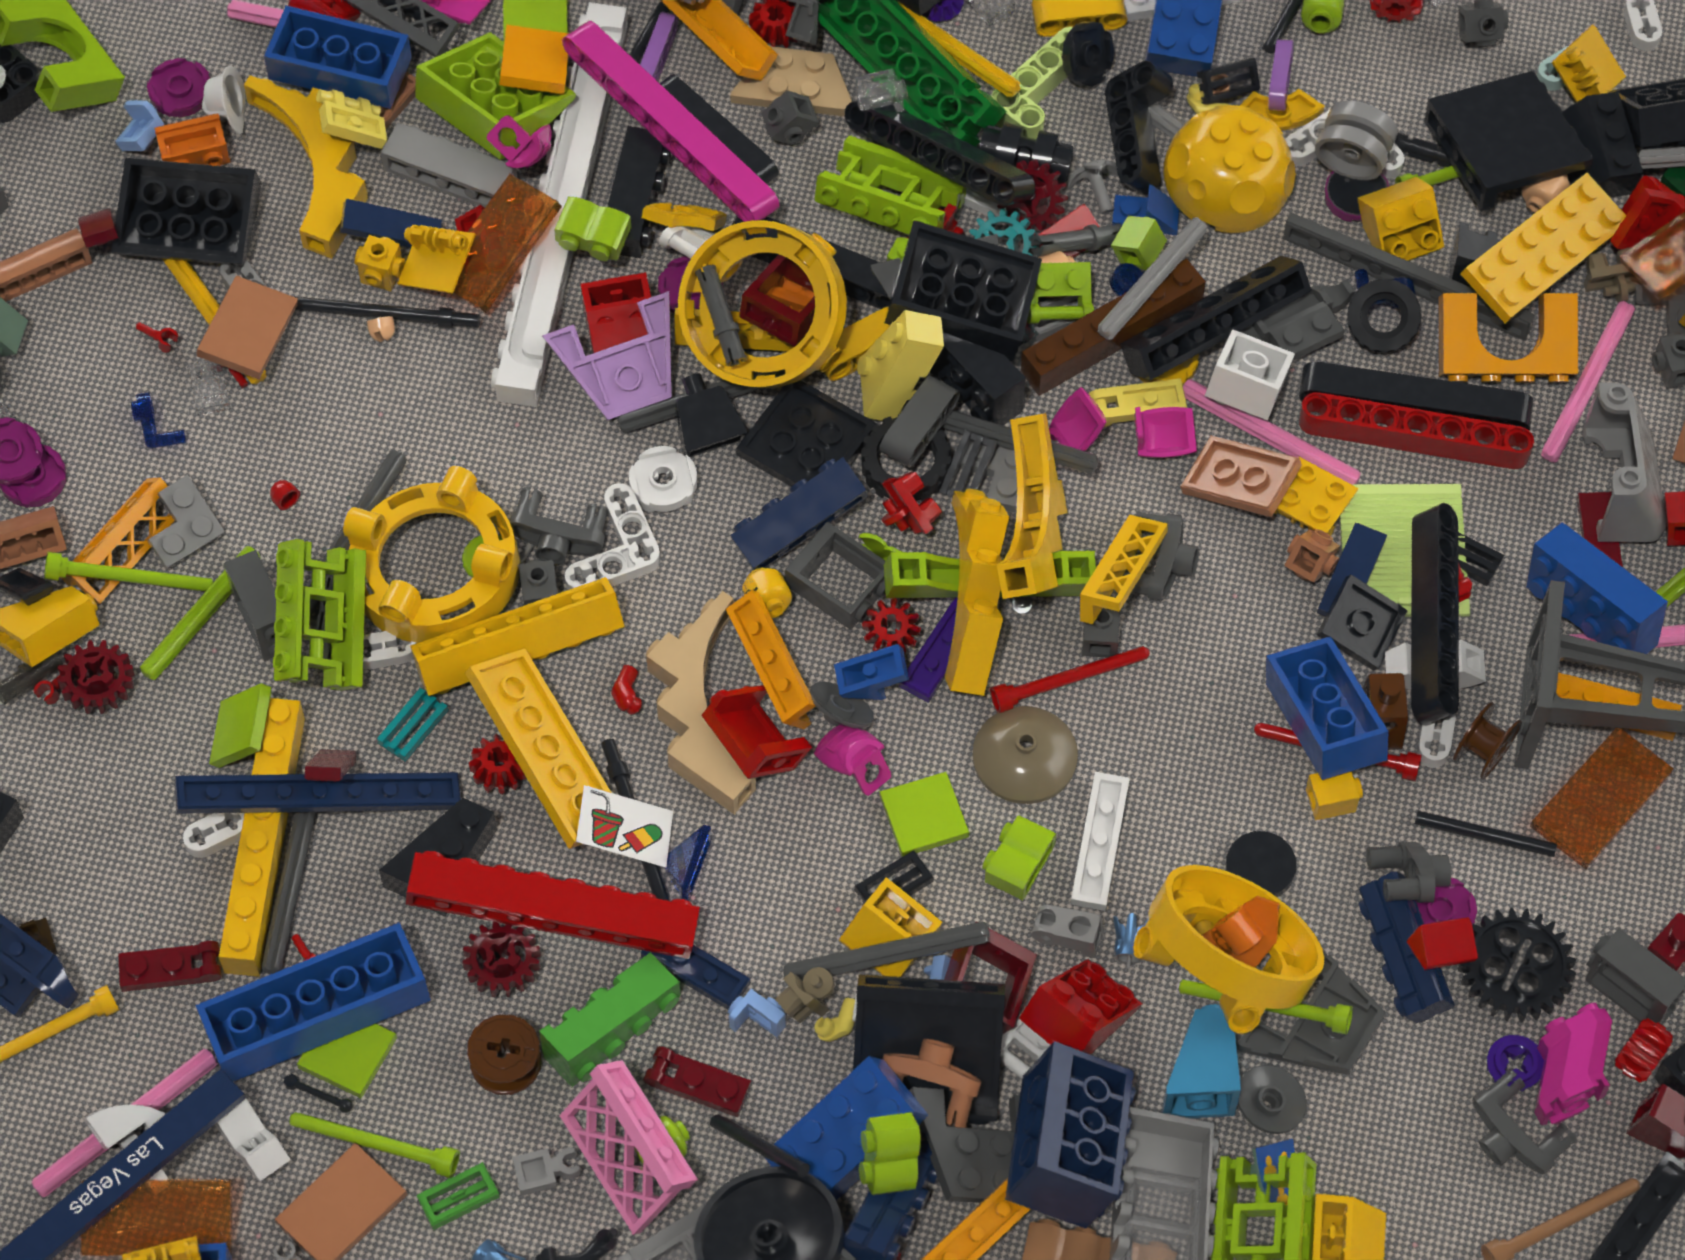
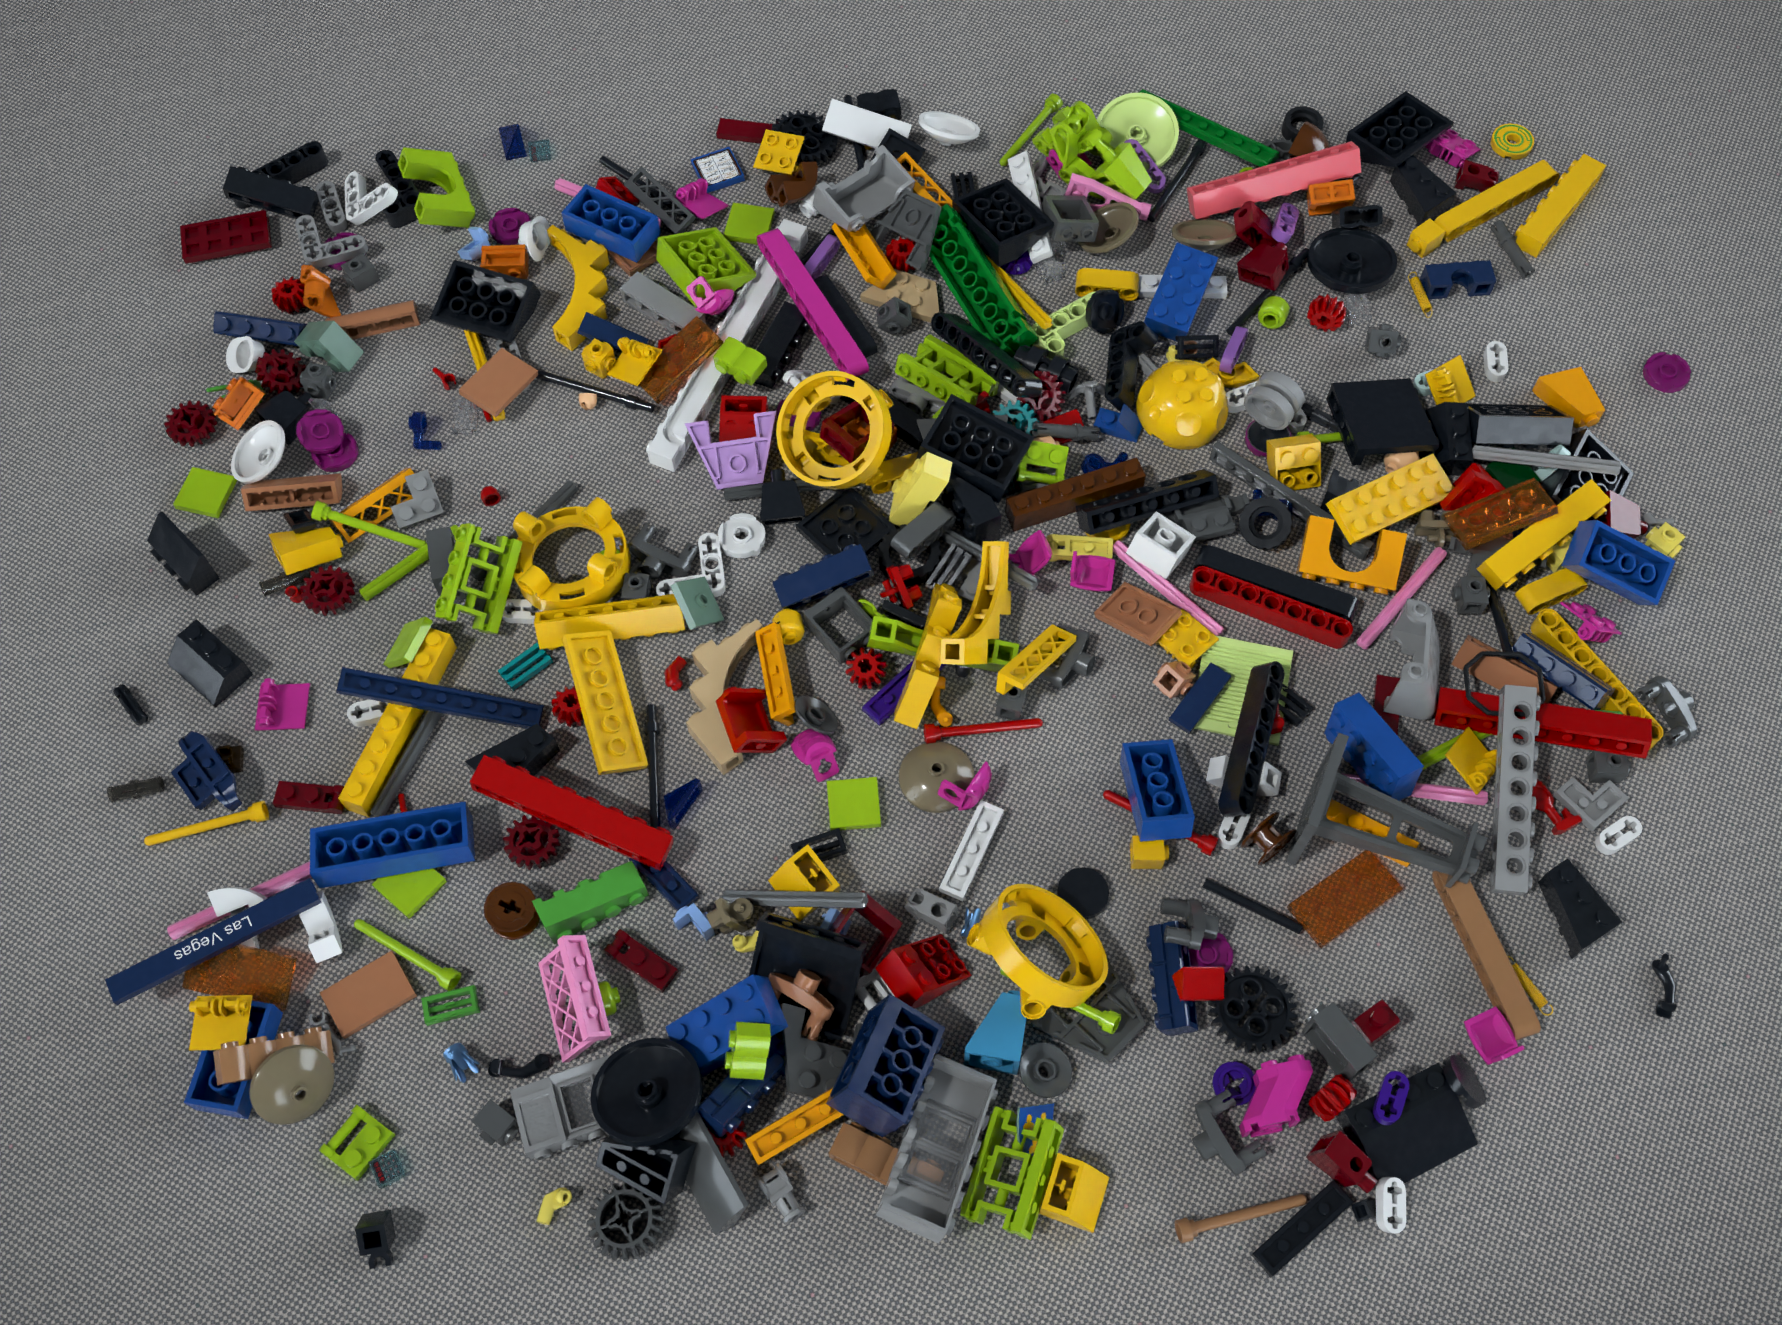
camera: 15 degrees right, 0 degrees up
(84, 851) = (282, 706): none -> dark pink hinge
(98, 228) = (424, 302): dark red slope -> none
(291, 1082) = (366, 897): black hinge -> none
(330, 765) = (454, 682): tile -> none
(351, 118) = (606, 262): light yellow plate -> none
(534, 60) = (734, 248): light orange tile -> none
(538, 1171) = (510, 999): light grey plate -> none
(624, 826) = (642, 767): white sticker -> none
(634, 585) = (697, 602): none -> sand green plate
(684, 216) = (804, 365): yellow tile -> none
(725, 328) = (805, 442): dark grey pin -> none
(759, 1145) = (664, 1020): black bar -> none
(852, 231) = (915, 397): none -> light grey connector
(869, 673) = (842, 697): blue slope -> none
(880, 90) = (956, 307): clear bracket -> none
(923, 543) = (903, 615): none -> black tile
(1010, 670) = (943, 717): none -> light orange piece
(1019, 857) = (911, 849): lime brick -> none
(1083, 769) = (974, 792): none -> dark pink piece
(1139, 242) = (1107, 441): lime brick -> none
(1152, 278) = (1108, 466): light grey axle -> none
(1247, 931) = (1052, 944): orange panel -> none
(1362, 622) = (1198, 733): black tile -> none
(1388, 698) = (1202, 794): reddish brown torso -> none

